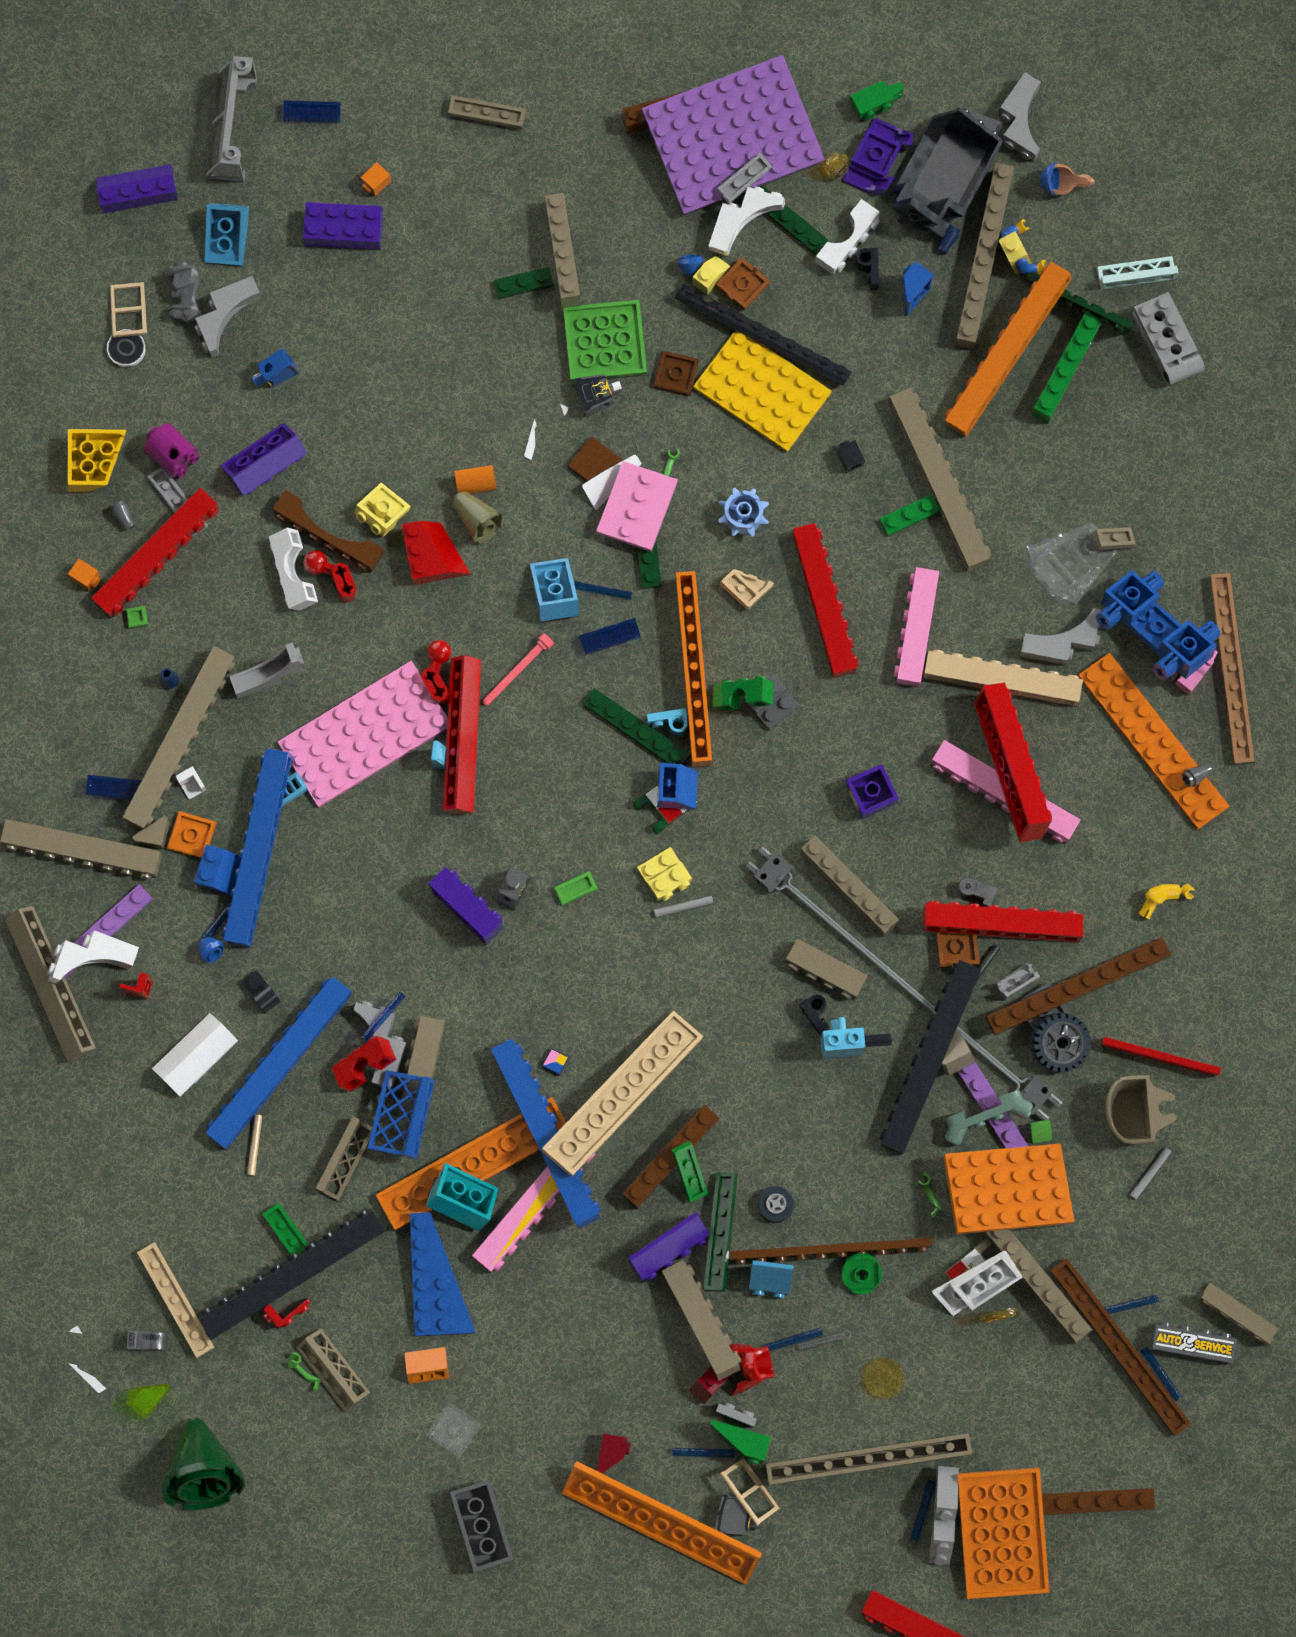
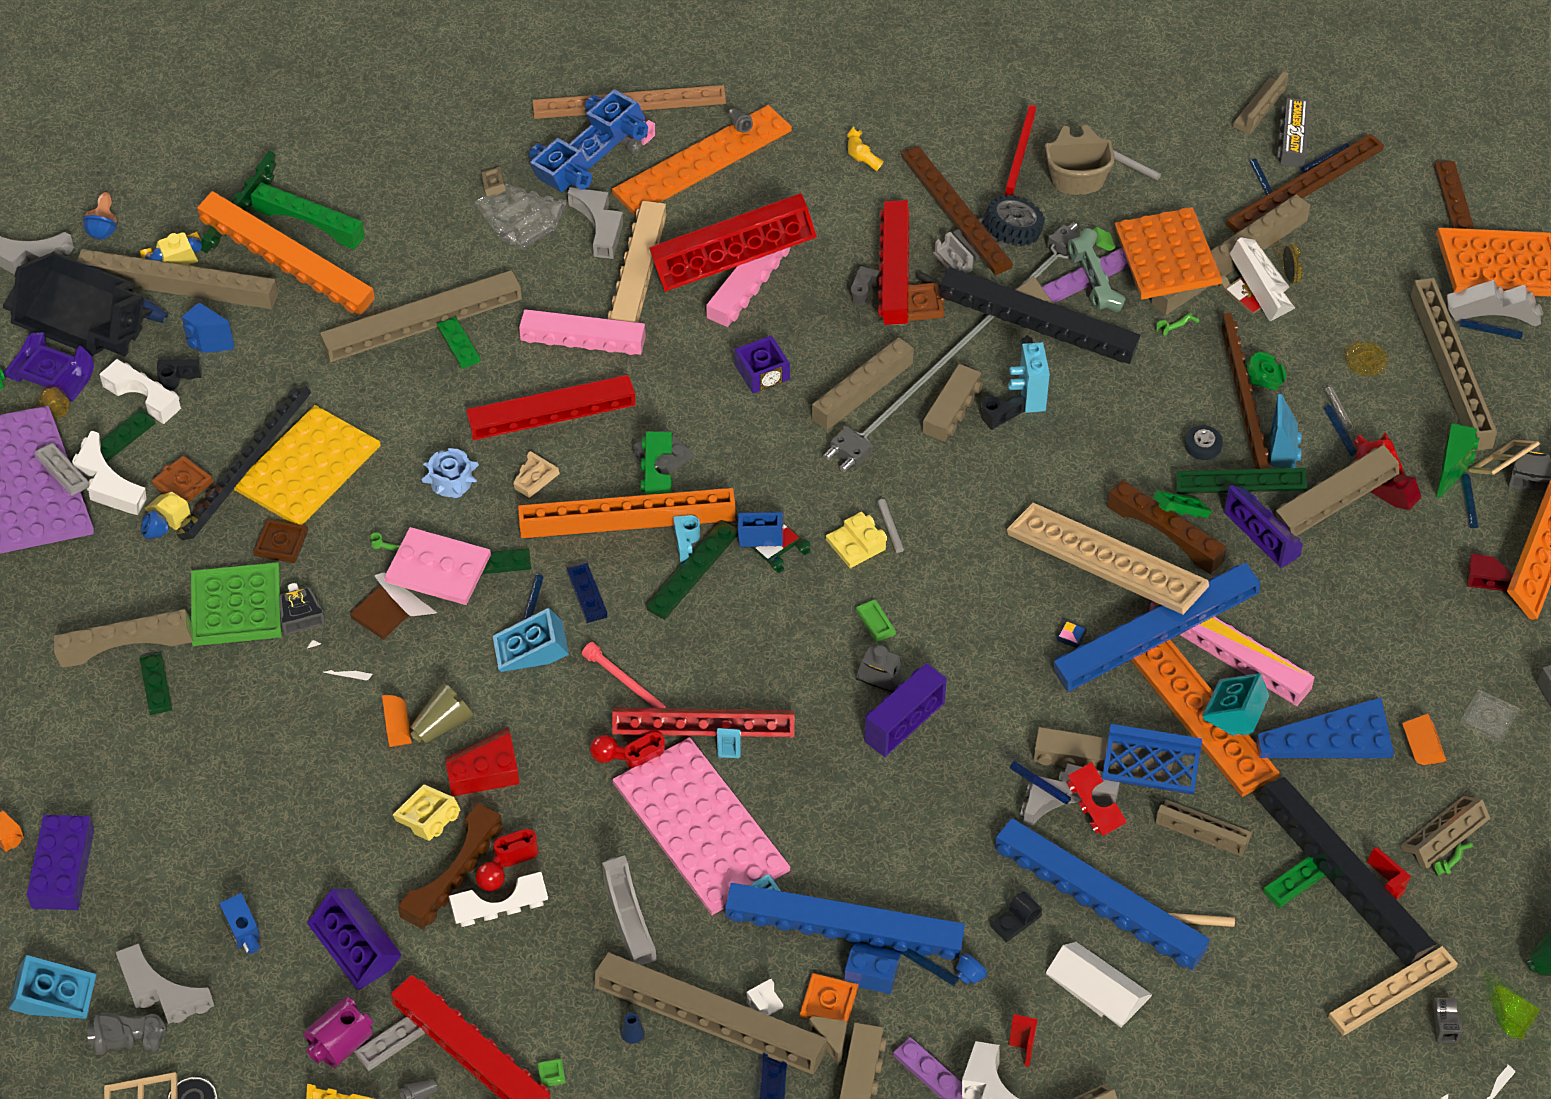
camera: 90 degrees left, 25 degrees down
(728, 1410) = (1428, 464): light grey plate -> none
(850, 455) = (390, 387): black brick -> none
(1137, 277) = (213, 168): light aqua fence -> none
(1171, 366) = (287, 138): light grey hinge -> none

